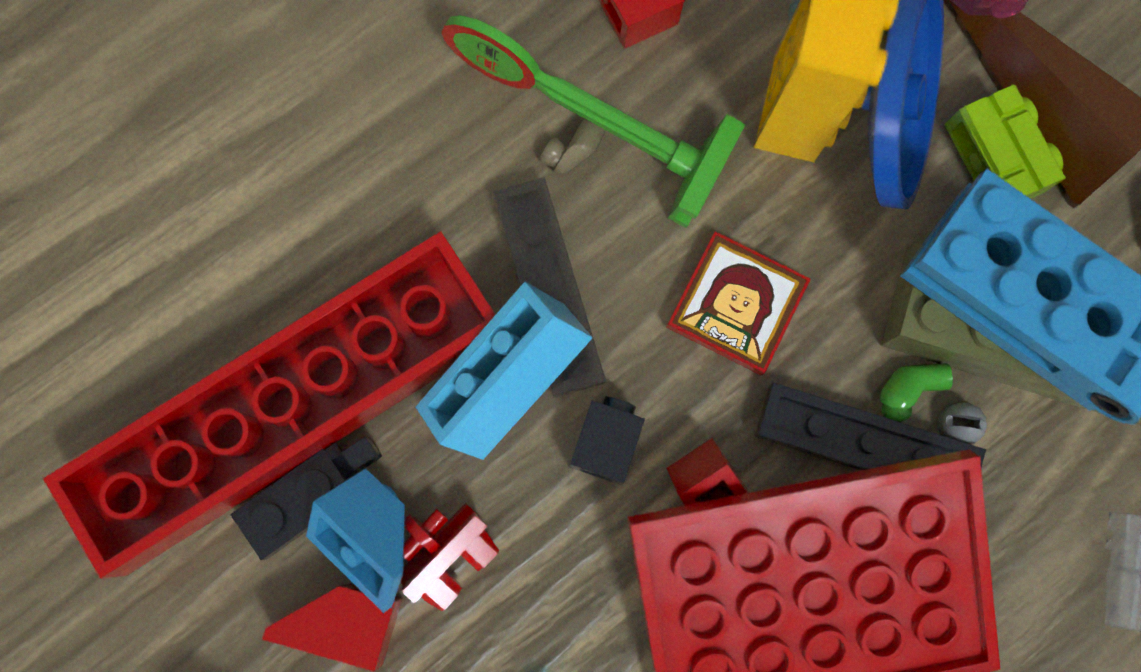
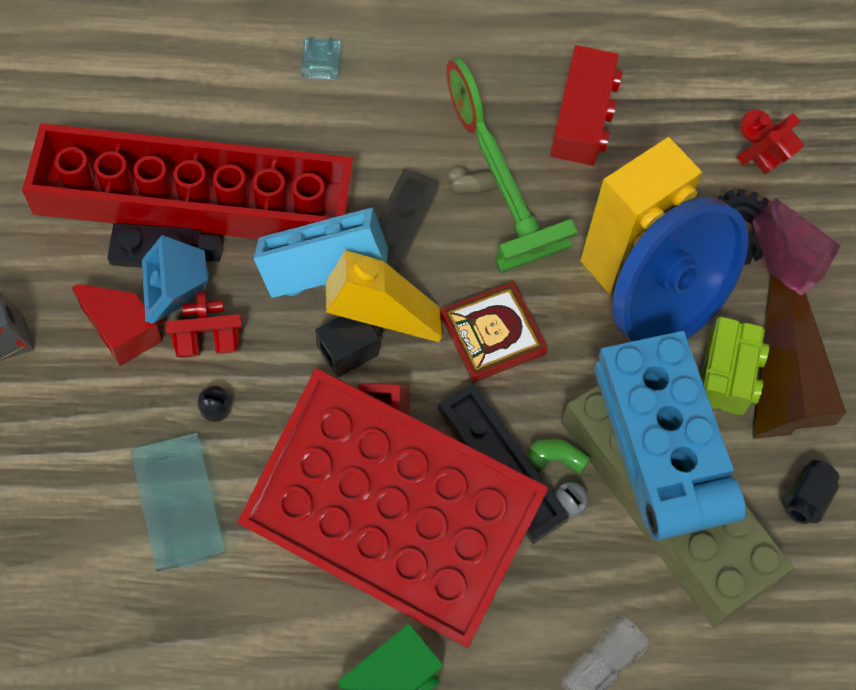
camera: 40 degrees right, 15 degrees down
(281, 125) = (320, 58): none -> clear light blue tile
(517, 612) = (212, 409): none -> black hinge
(609, 375) = (380, 296): none -> yellow slope

